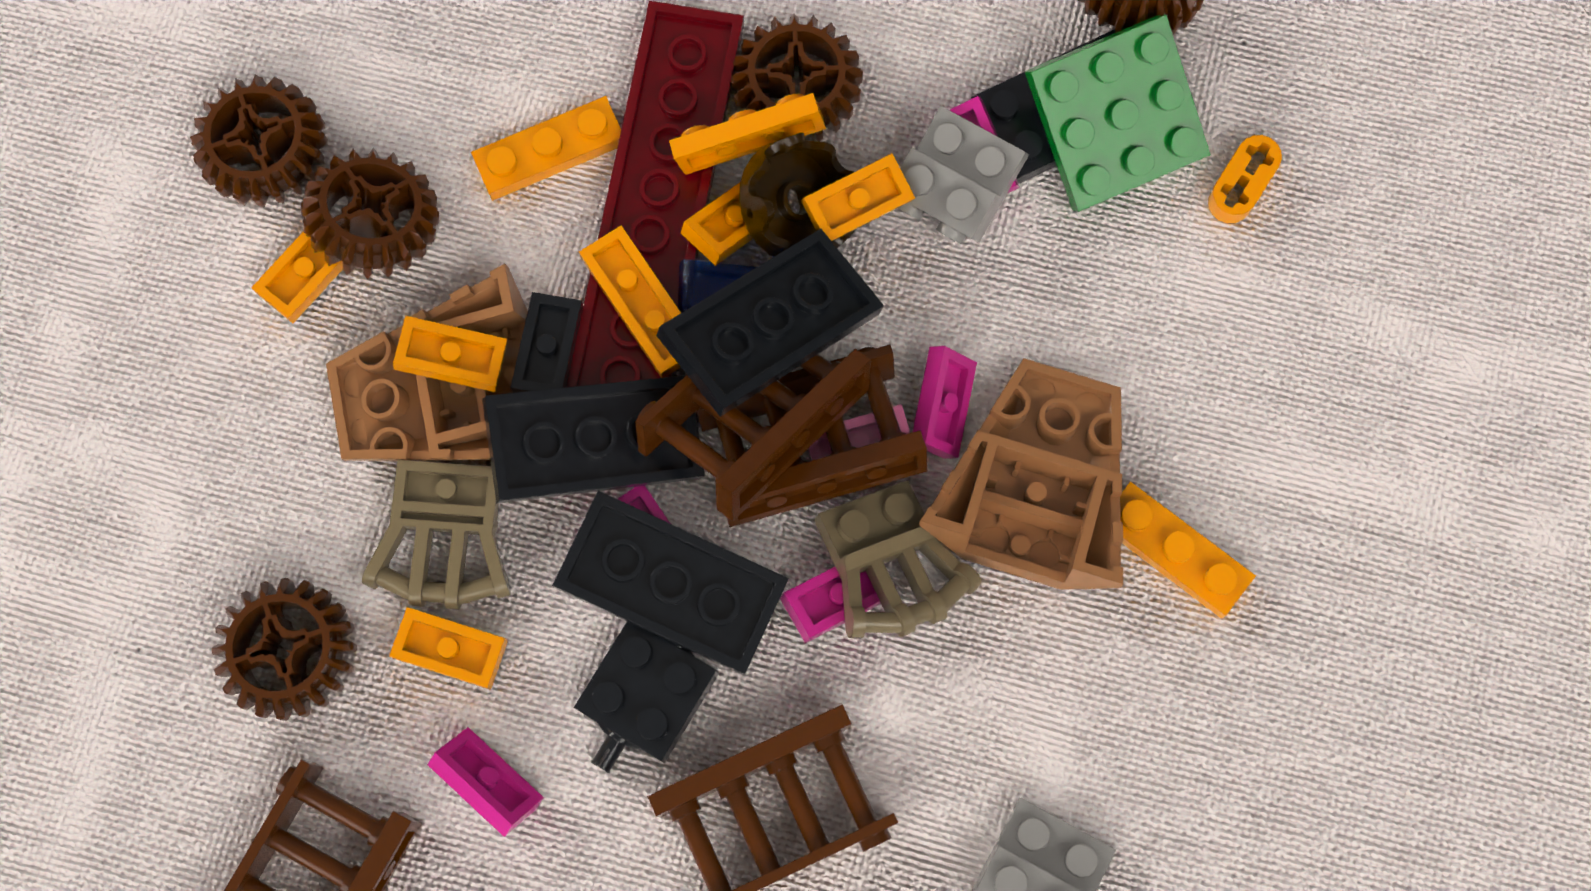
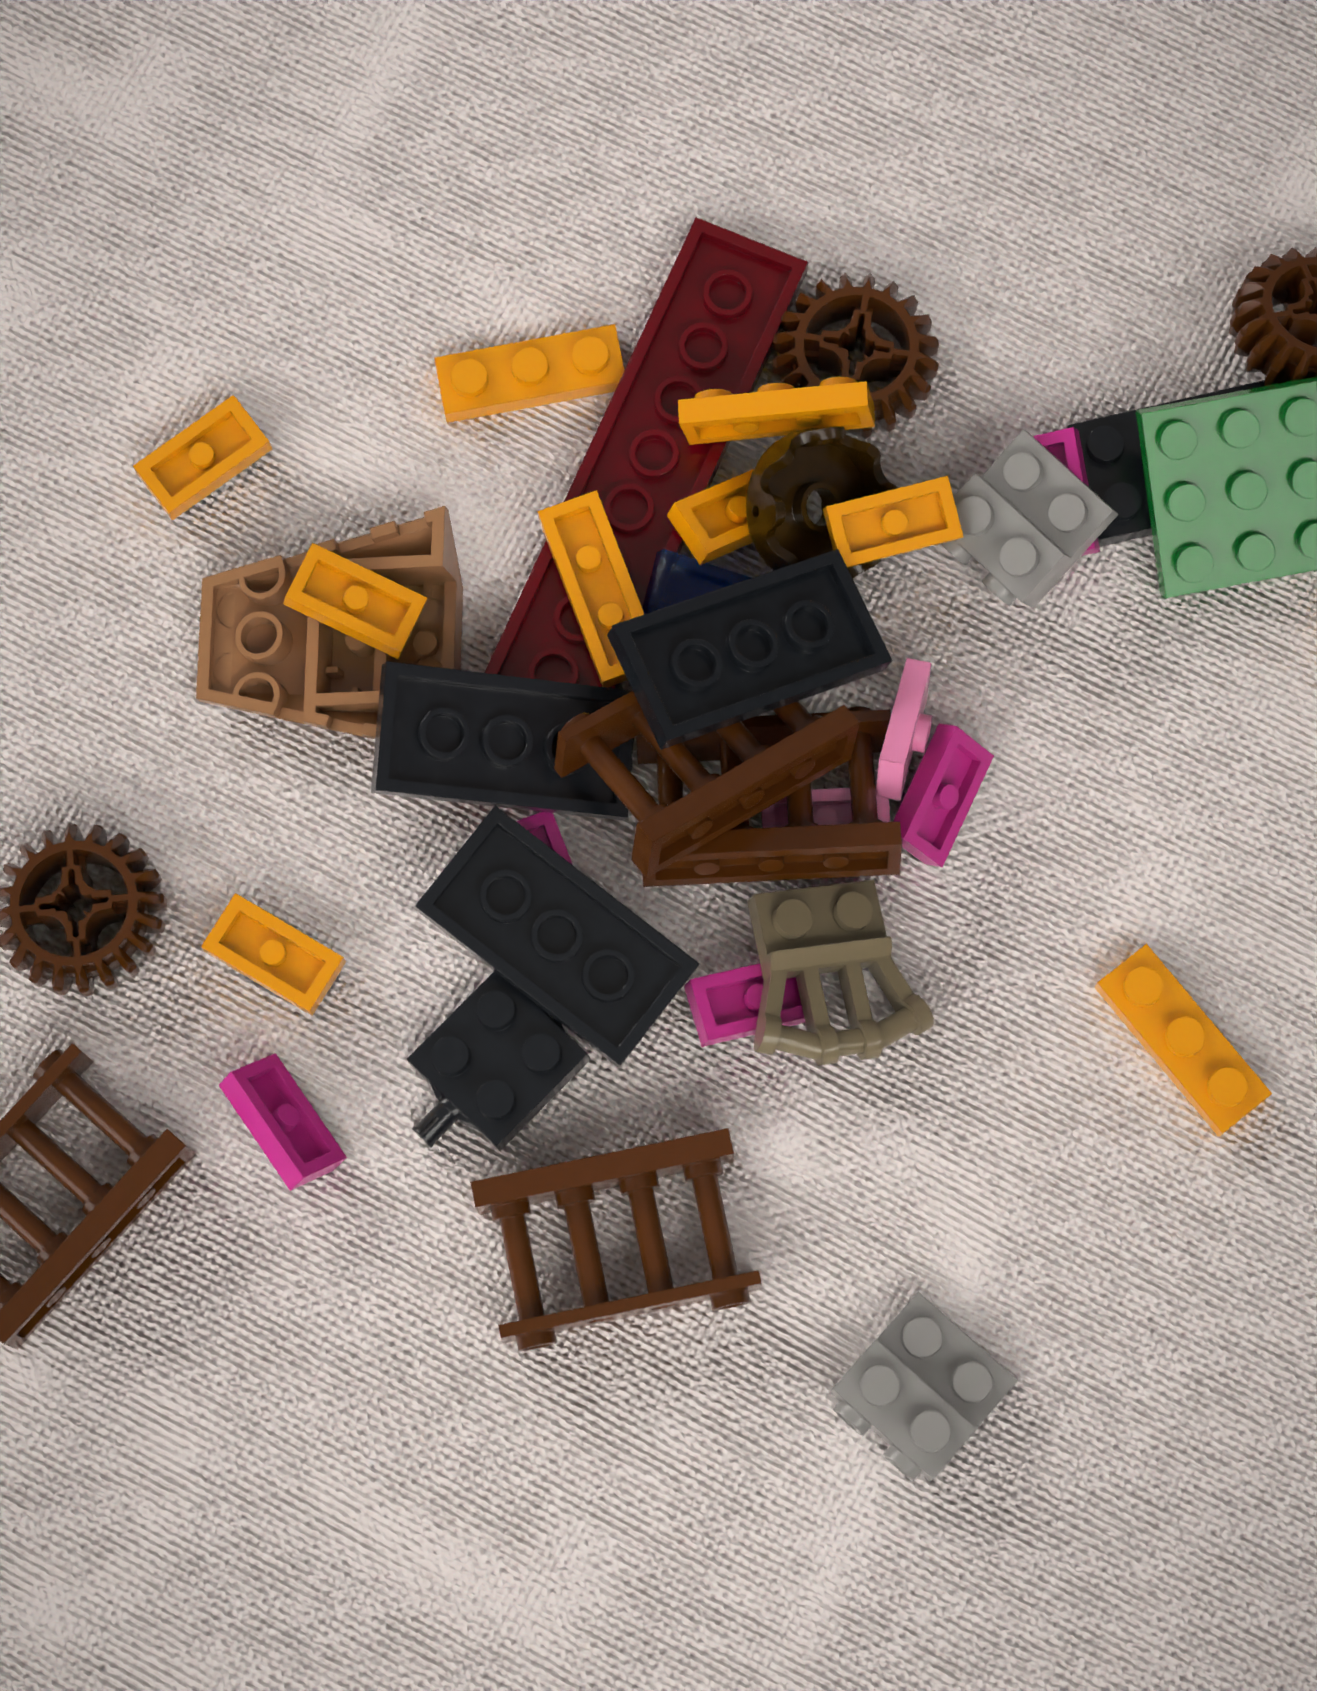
camera: 15 degrees right, 0 degrees up
(232, 136) = (133, 287): reddish brown gear -> none
(365, 228) = (286, 426): reddish brown gear -> none
(446, 500) = (301, 774): dark tan plate -> none
(547, 343) = (474, 614): black plate -> none
(907, 357) = (906, 730): none -> bright pink plate
(1040, 483) = (1033, 919): medium nougat wedge -> none

